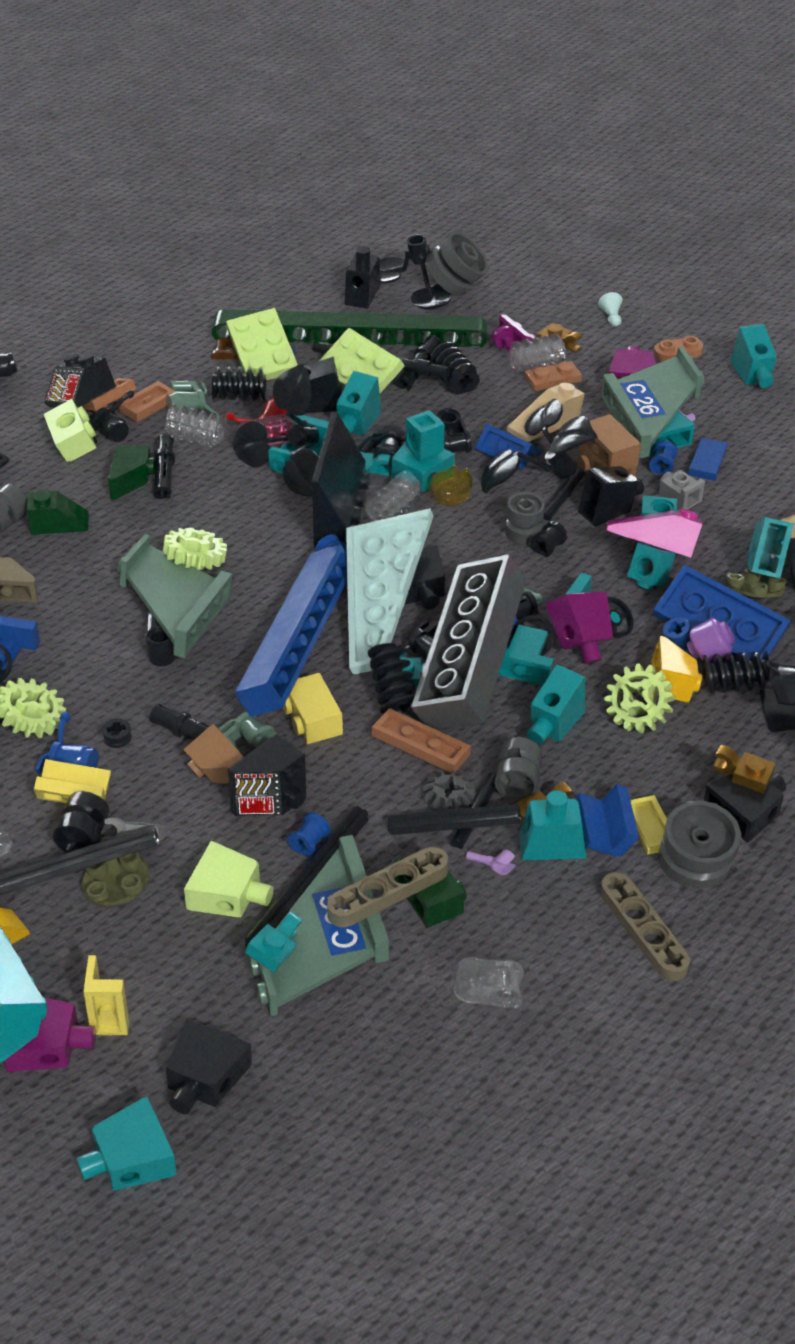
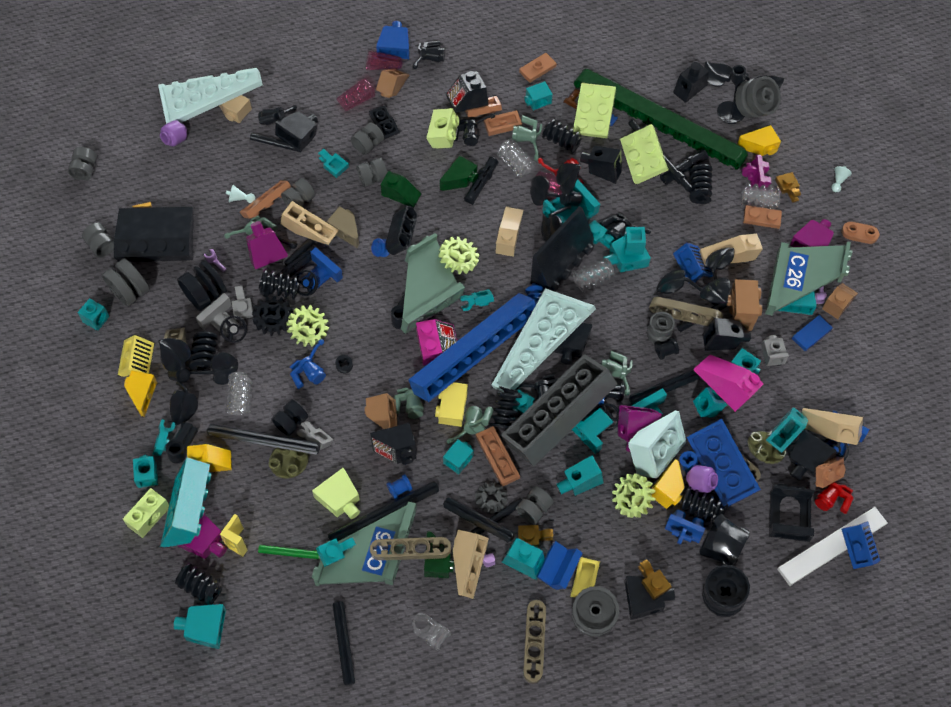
camera: 30 degrees right, 20 degrees up
(63, 779) = (300, 389): light yellow panel -> none
(75, 583) = (378, 248): none -> blue wheel
(82, 1096) = (197, 585): none -> black piece
(93, 551) = (401, 230): none -> black beam
(151, 336) = (537, 67): none -> nougat plate
(176, 358) = (538, 96): none -> teal brick
(177, 722) = (379, 376): black pin -> none
(199, 992) = (288, 552): none -> green bar
(205, 1066) = (262, 599): black torso -> none
(225, 651) = (434, 338): none -> dark pink slope
(246, 505) = (509, 231): none -> tan slope
(262, 583) = (479, 298): none -> teal plate
(359, 403) = (619, 190): teal torso -> none
(360, 714) = (474, 421): none -> sand green piece
(367, 762) = (458, 456): none -> teal brick
(372, 1065) = (343, 643): none -> black axle
(452, 486) = (638, 276): clear yellow hair -> none
(456, 435) = (664, 238): black piece -> none
(476, 864) = (468, 559): none -> tan slope
(492, 304) = (760, 141): none -> yellow slope
(541, 486) = (705, 314): none -> dark tan beam
(590, 566) = (667, 385): none -> black axle
(623, 630) = (657, 445): none -> light aqua slope
(667, 457) = (783, 319): blue bush -> none
(713, 415) = (839, 300): none -> medium nougat slope
(731, 707) = (685, 529): none -> blue hips
(754, 355) = (899, 268): teal torso -> none

